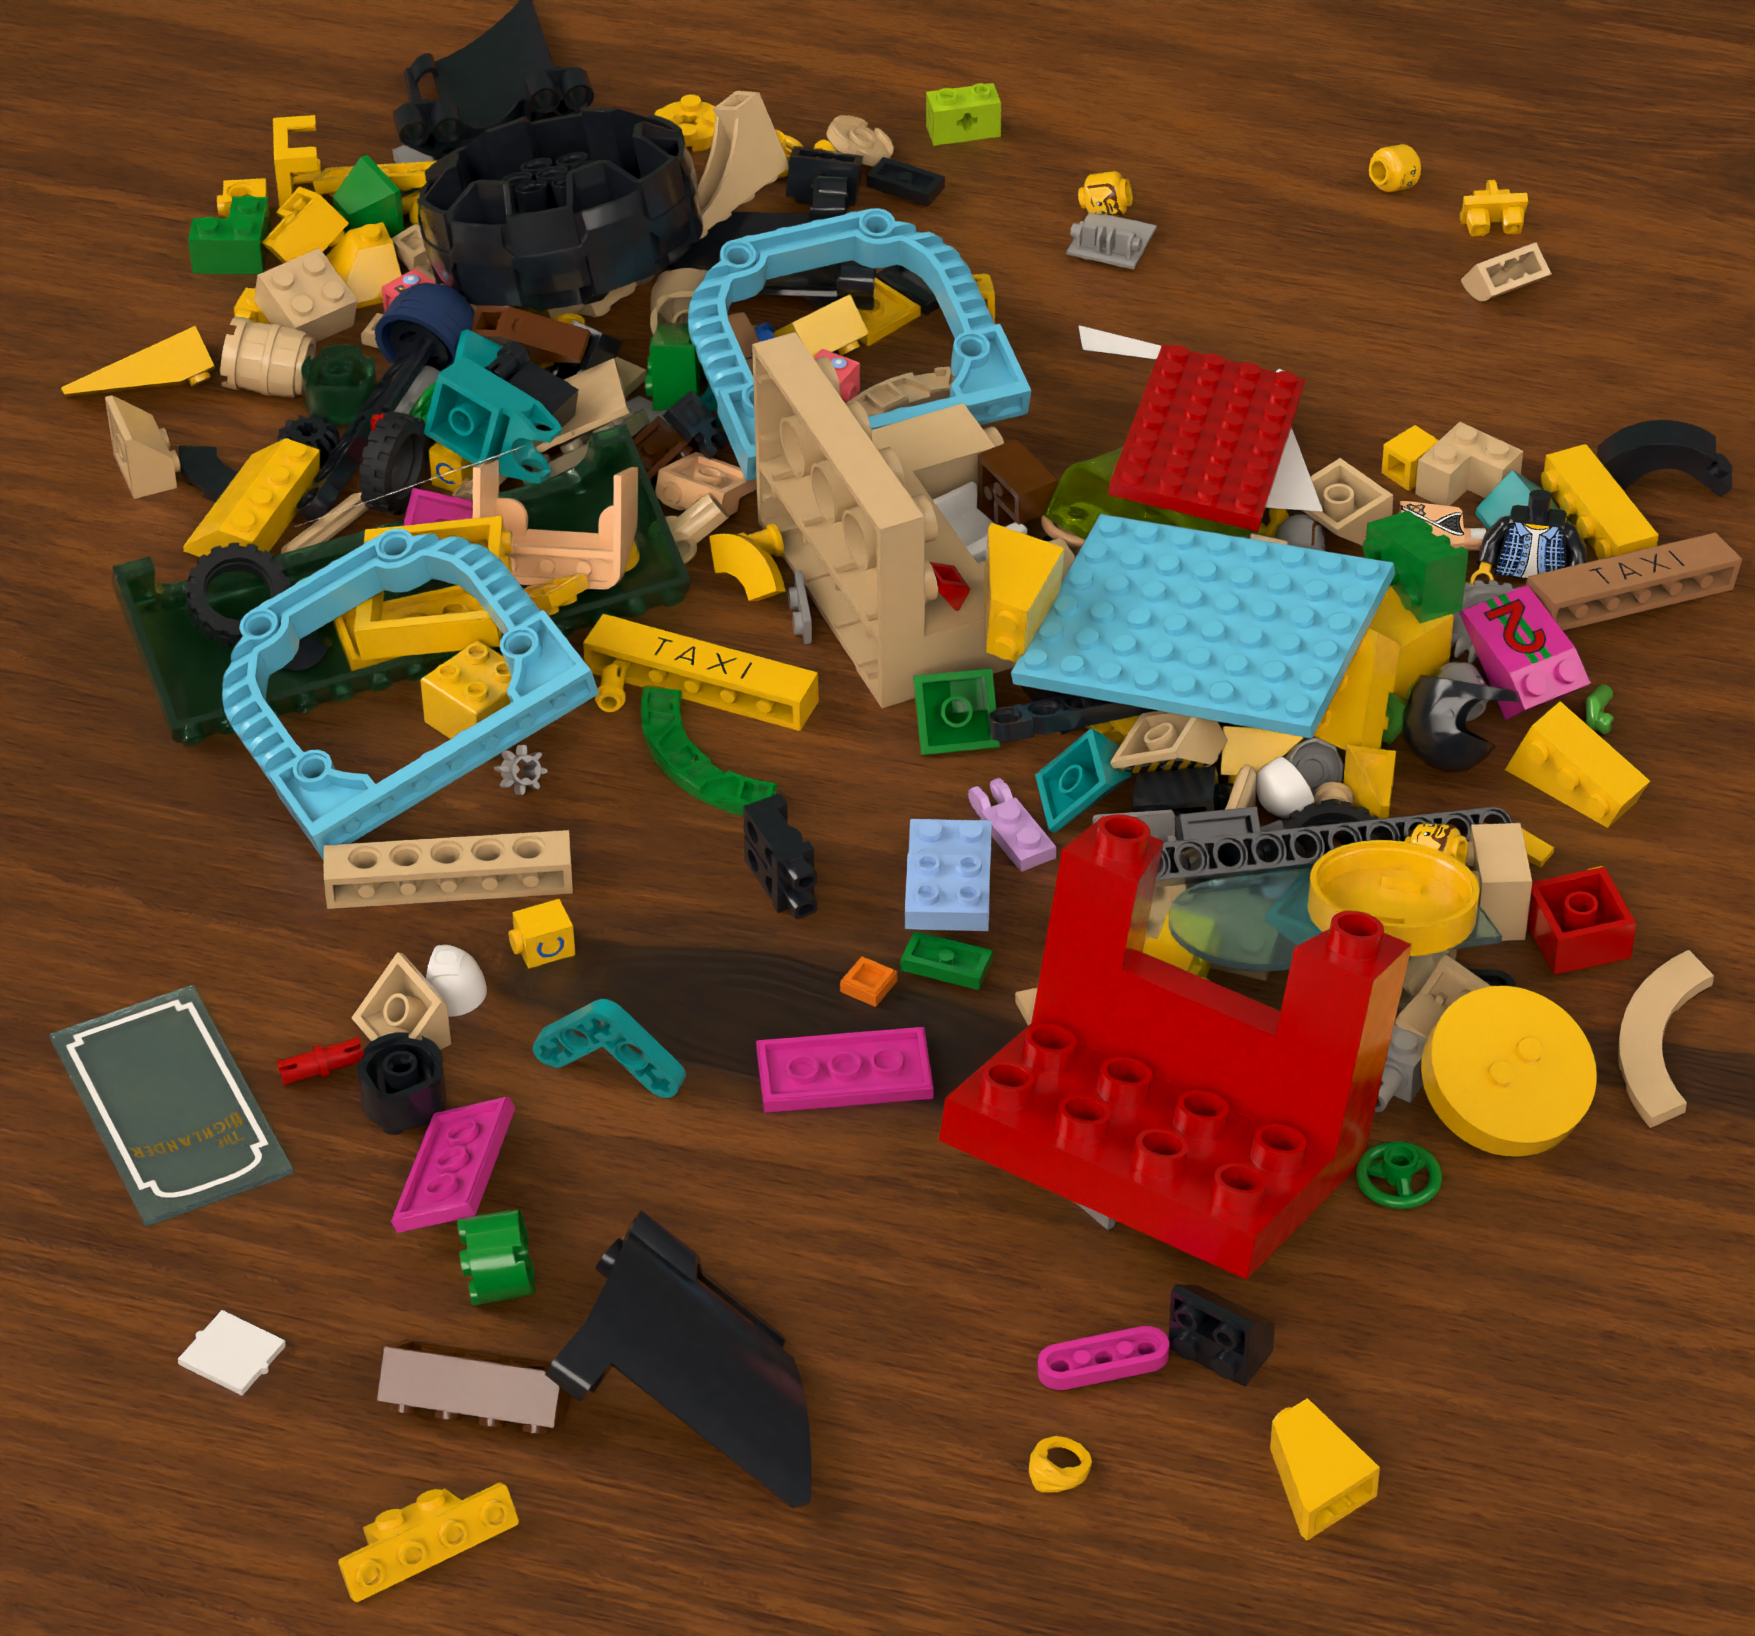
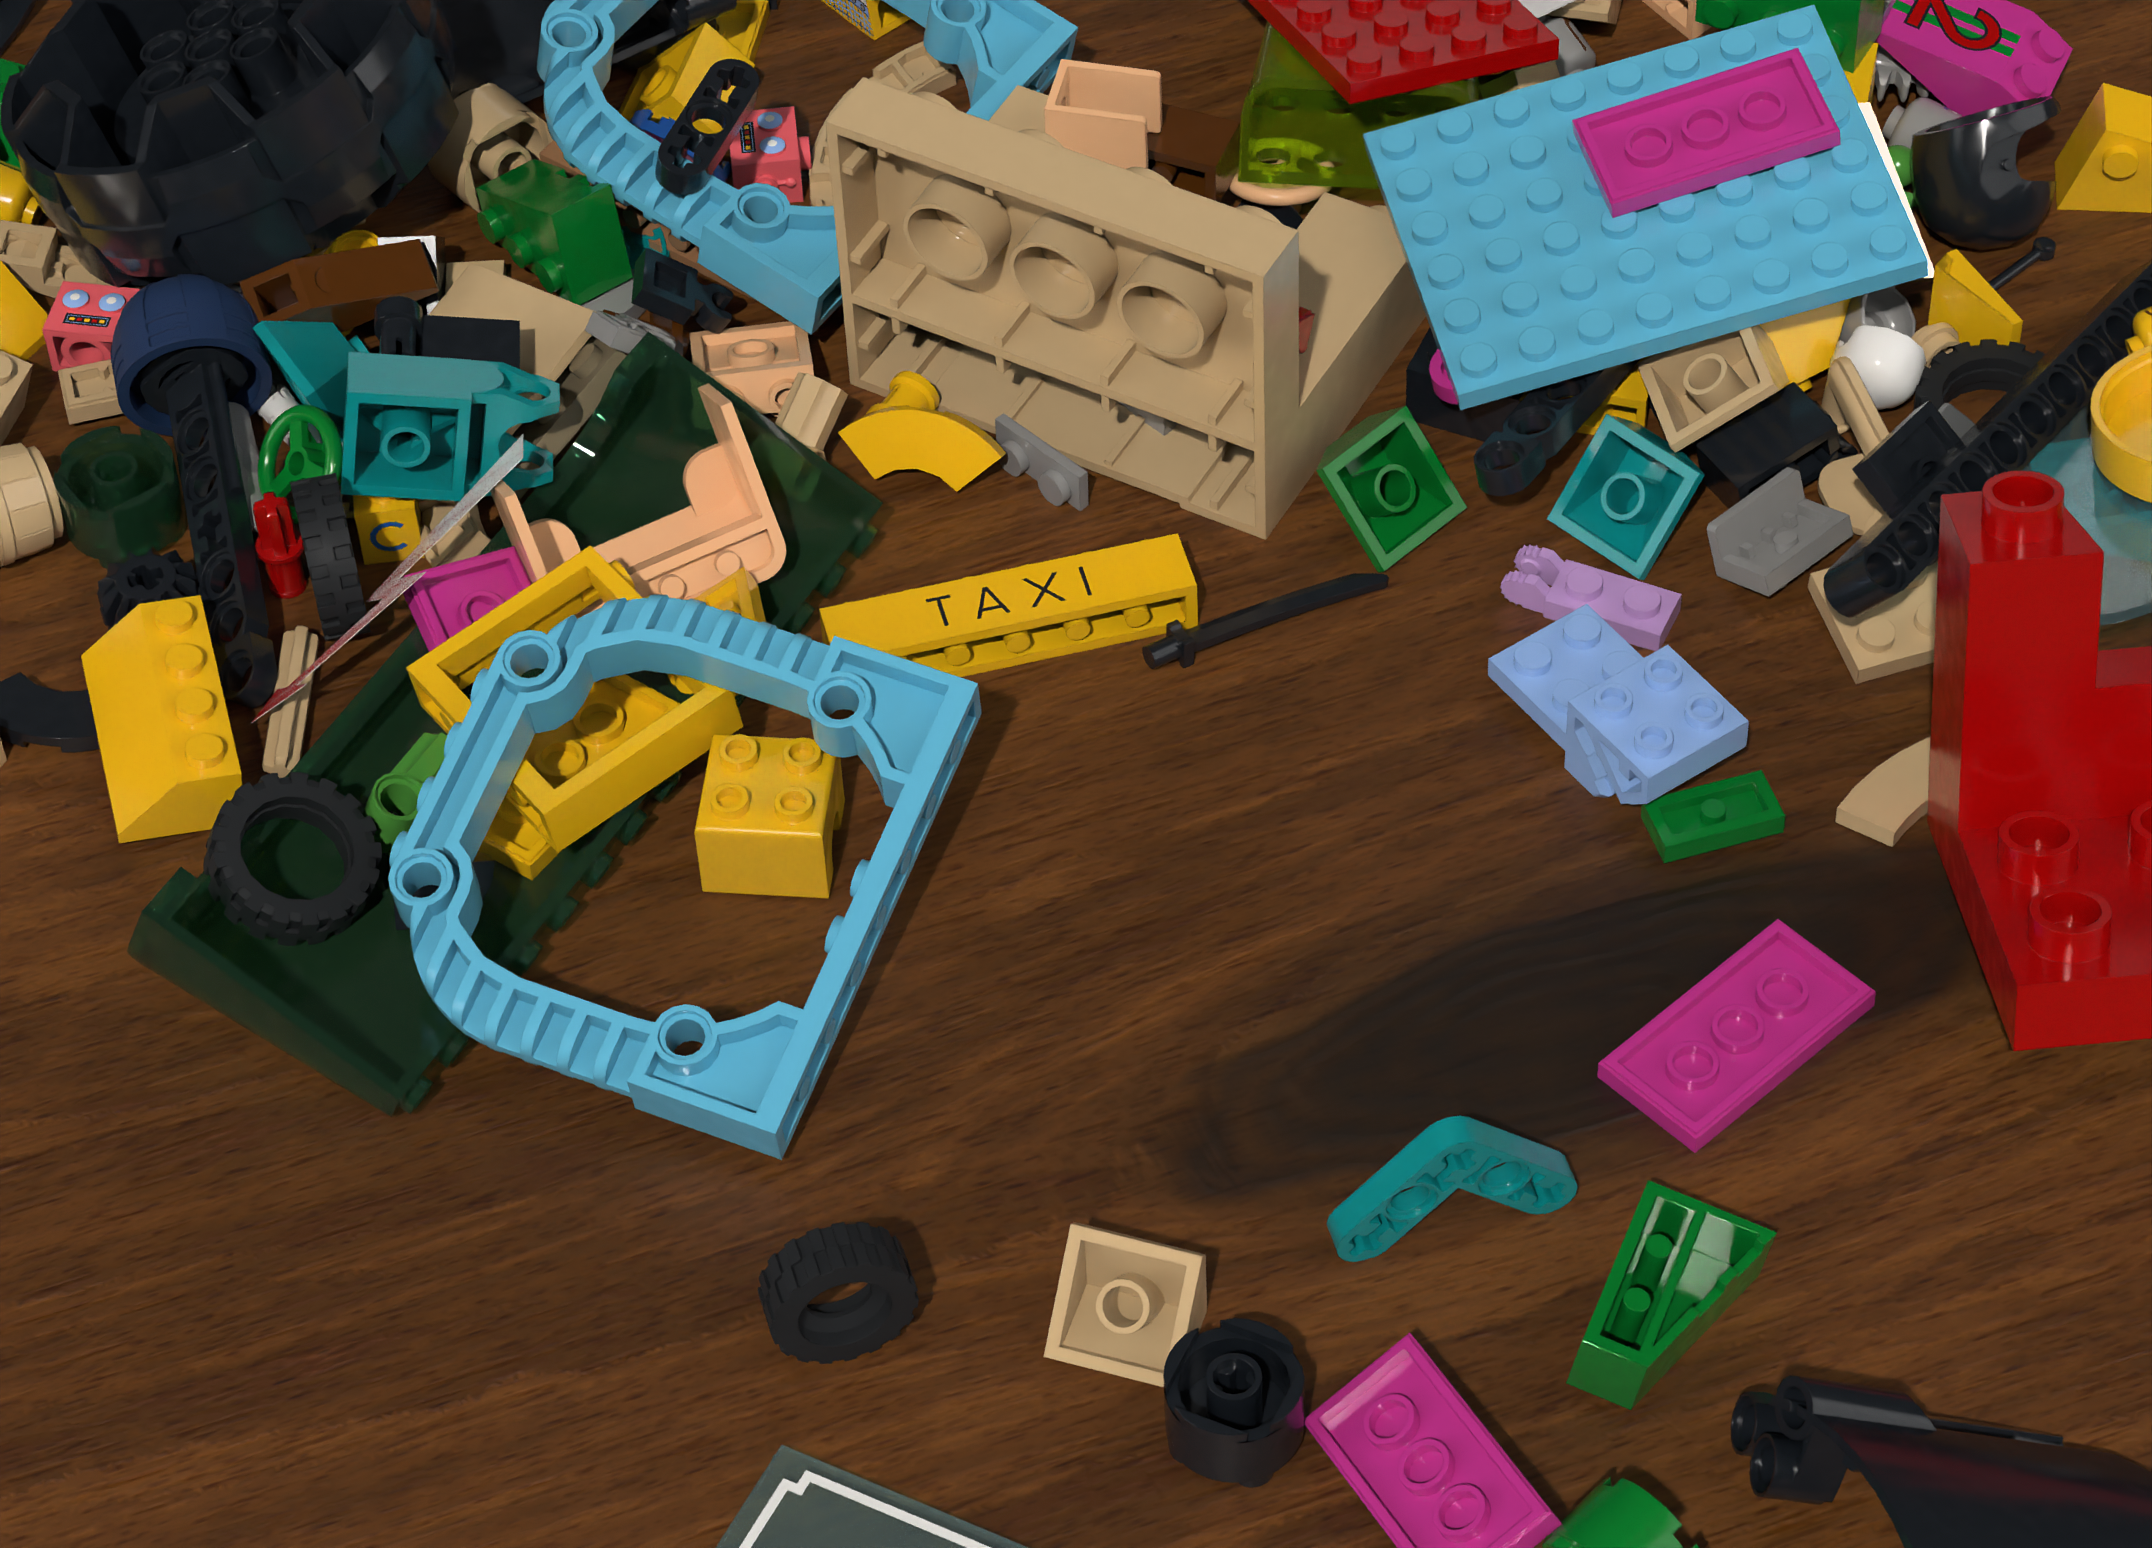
camera: 35 degrees left, 5 degrees up
(284, 908) = (830, 1259): none -> black tyre
(320, 1061) = (1079, 1442): red pin -> none
(447, 869) = (965, 1073): tan brick -> none
(456, 979) = (1137, 1206): white helmet -> none
(531, 770) = (930, 884): light grey gear -> none
(542, 934) = (1186, 1084): yellow brick -> none
(646, 434) = (624, 331): none -> light grey tile
(654, 1155) = (1665, 1291): none -> green wedge
(686, 763) = (1118, 751): green tile -> none
(772, 325) = (707, 148): none -> black beam
(777, 733) = (1183, 644): none -> black sword
(779, 856) = (1394, 803): black hips -> none
(868, 981) = (1641, 901): orange tile -> none
(977, 426) = (1105, 111): none -> light nougat piece
(1019, 589) = (1383, 284): yellow slope -> none
(1260, 598) = (1706, 132): none -> dark pink tile
(1468, 785) = (2042, 249): none -> black hinge
(1594, 707) = (2086, 75): bright green arm -> none

